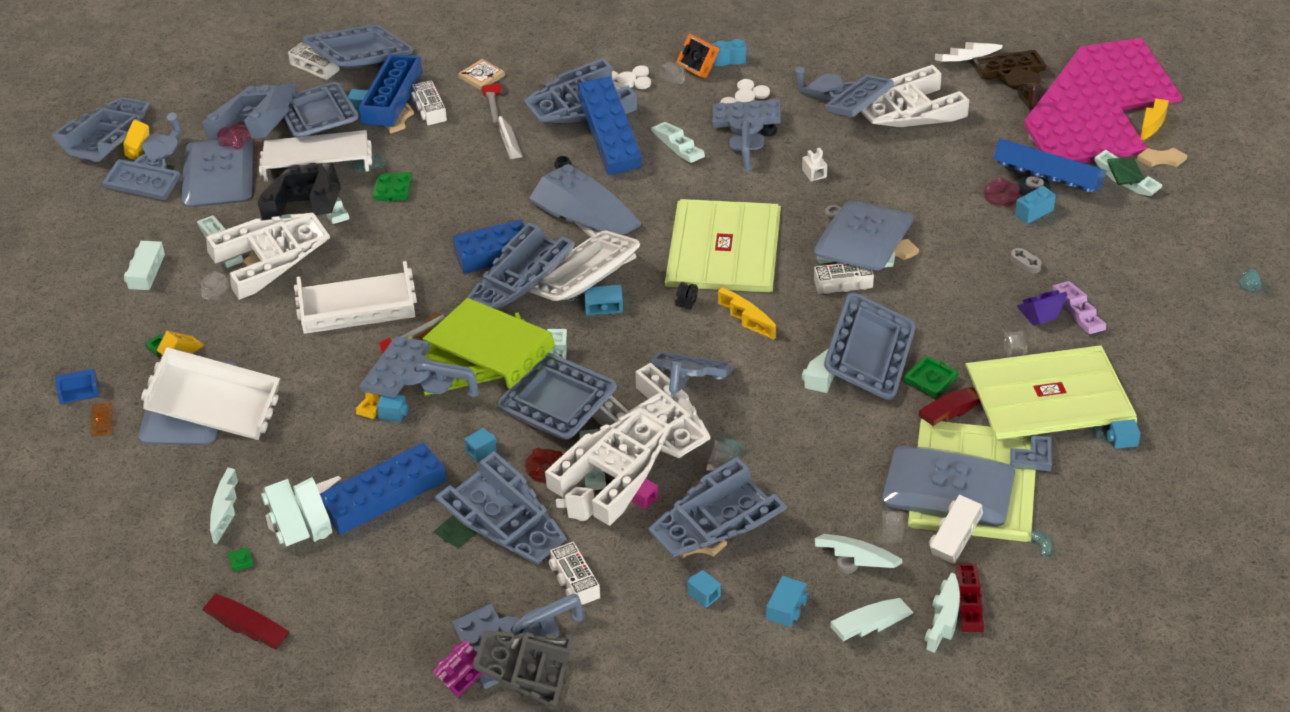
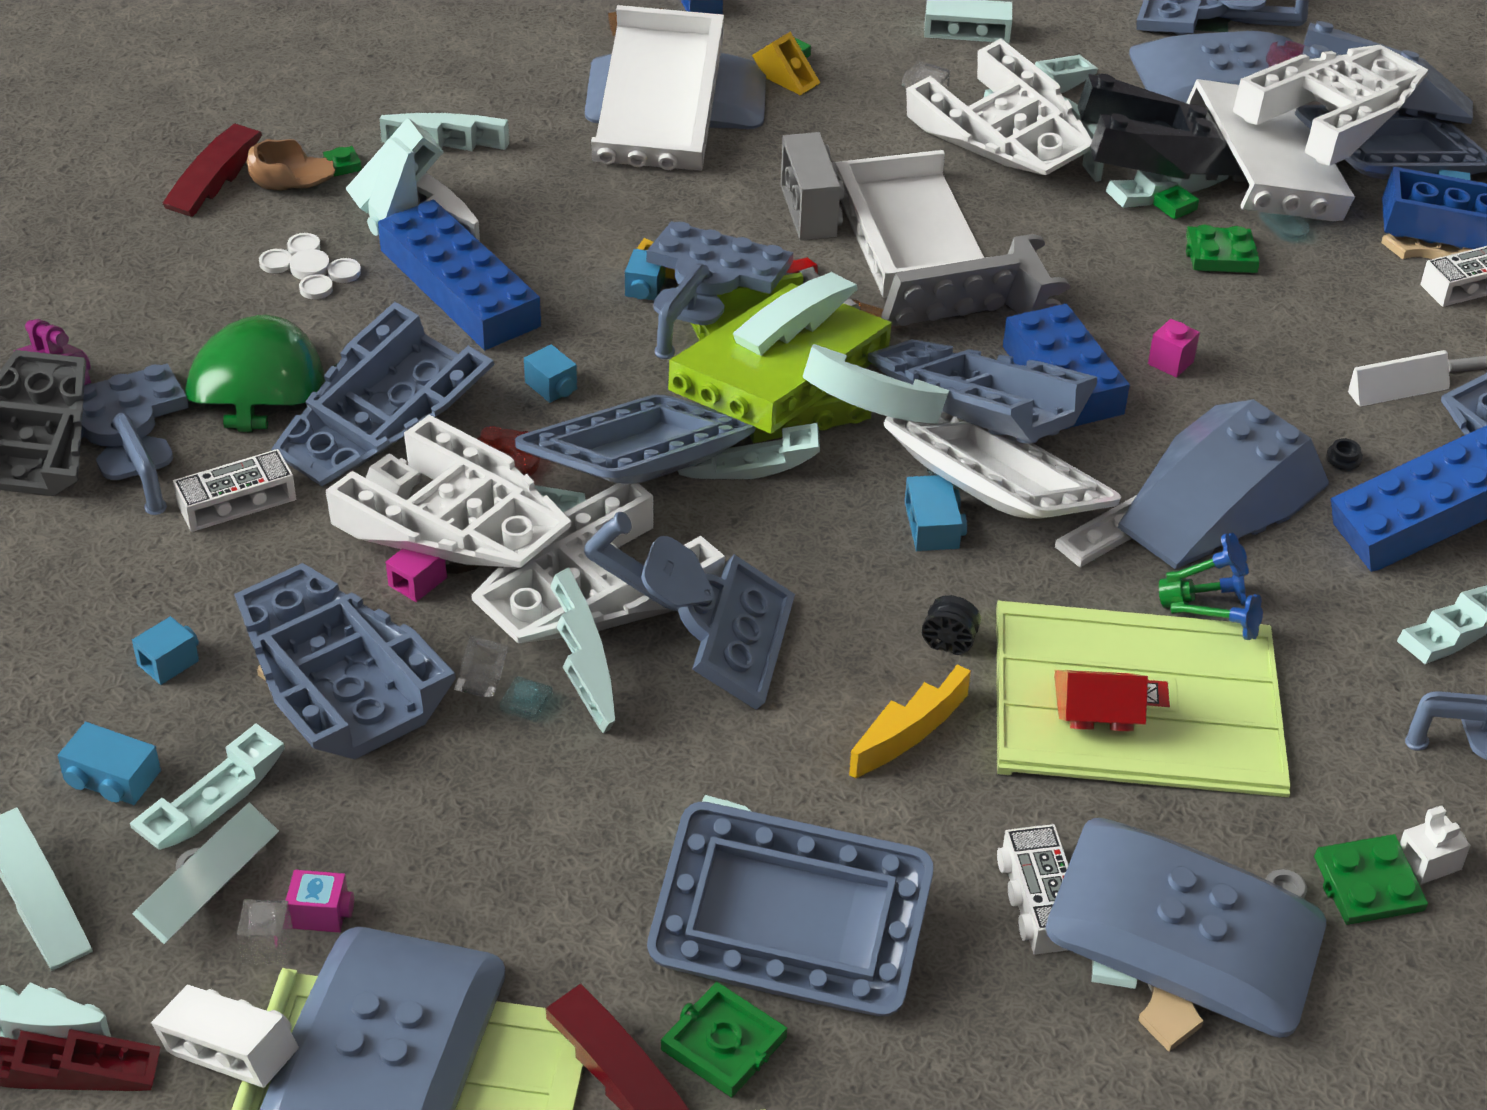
camera: 85 degrees right, 0 degrees up
(254, 579) = (286, 166): none -> medium nougat hair
(294, 101) = (1356, 87): none -> white wedge
(324, 331) = (811, 186): none -> light grey brick
(349, 198) = (1176, 201): none -> green plate
(353, 566) = (310, 266): none -> white piece
(425, 255) = (975, 286): none -> light grey hinge
(466, 577) = (252, 365): none -> green piece
(470, 324) = (797, 309): none -> light aqua slope
(481, 207) = (1173, 347): none -> dark pink brick
(534, 306) = (873, 390): none -> light aqua slope
(657, 203) = (1177, 592): none -> plant
(723, 411) = (587, 663): none -> light aqua slope
(736, 247) = (1101, 697): none -> red slope
(782, 548) = (222, 788): none -> light aqua slope
(828, 187) = (1370, 879): none -> green plate
(870, 512) = (319, 900): none -> dark pink brick

